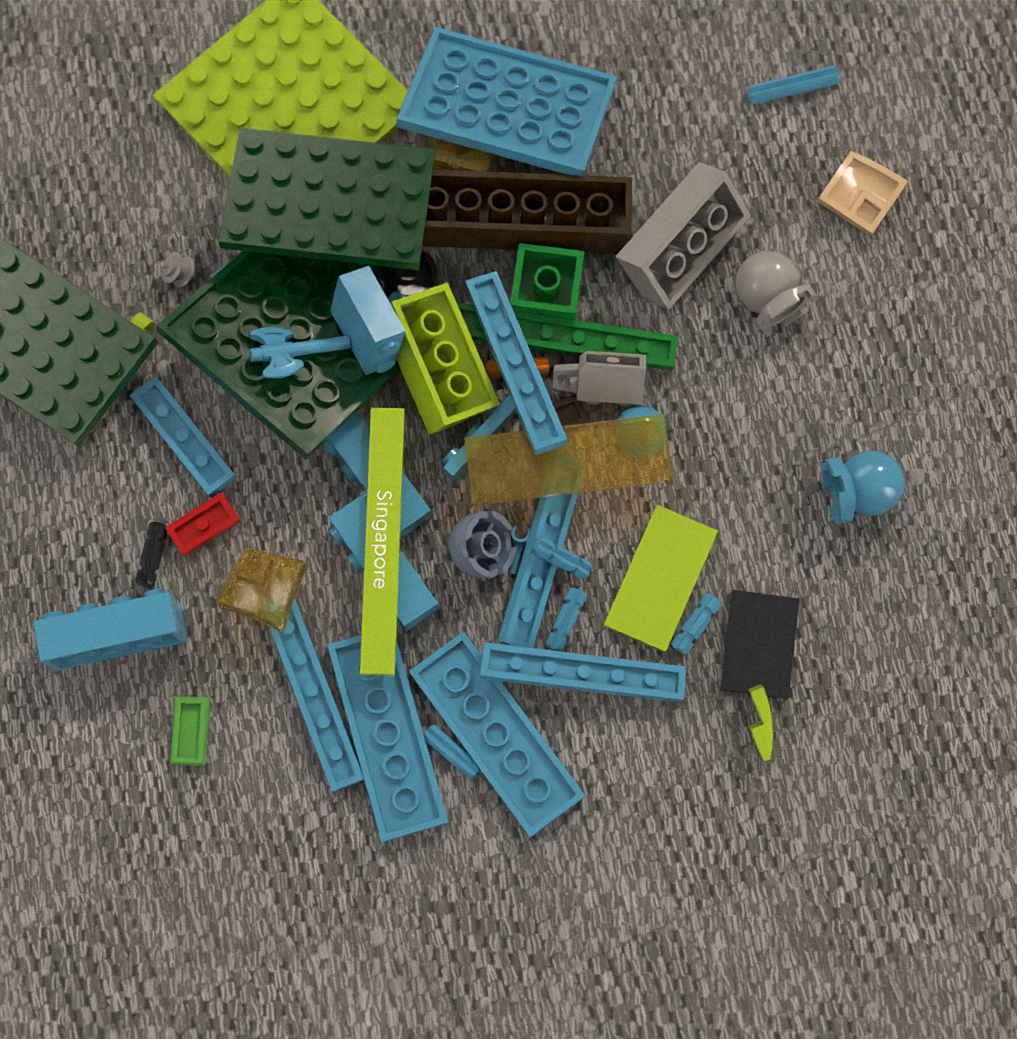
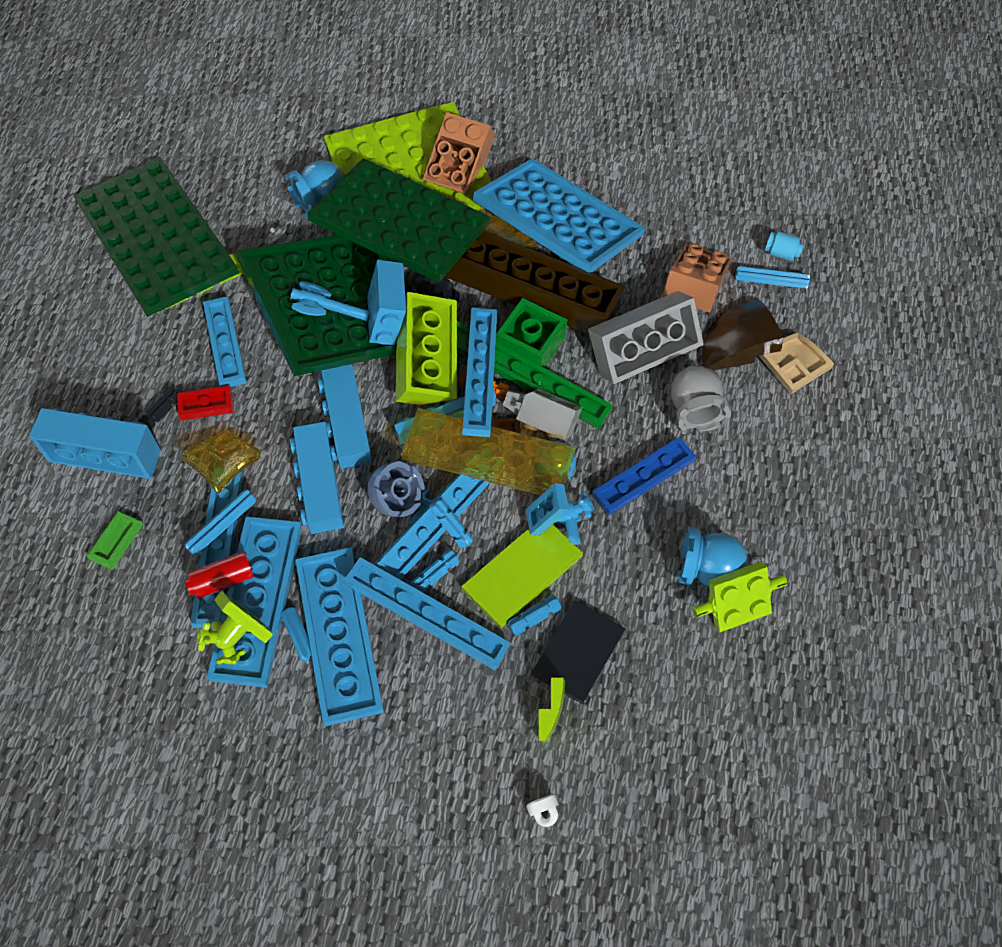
camera: 20 degrees right, 15 degrees down
(190, 178) = (313, 183): none -> dark azure tile
(305, 665) = (220, 522): none -> dark azure axle
(339, 726) = (219, 575): none -> red brick
(345, 65) = (459, 153): none -> nougat slope
(382, 542) = (319, 460): lime tile -> none
(388, 790) = (229, 632): none -> lime piece
(673, 496) = (554, 508): none -> dark azure piece
(706, 120) = (698, 275): none -> nougat slope
(747, 409) = (643, 476): none -> blue plate
(787, 183) = (741, 336): none -> dark brown brick
(793, 36) = (784, 246): none -> medium azure brick
(793, 823) = (543, 804): none -> white tile
(909, 515) = (740, 596): none -> lime plate

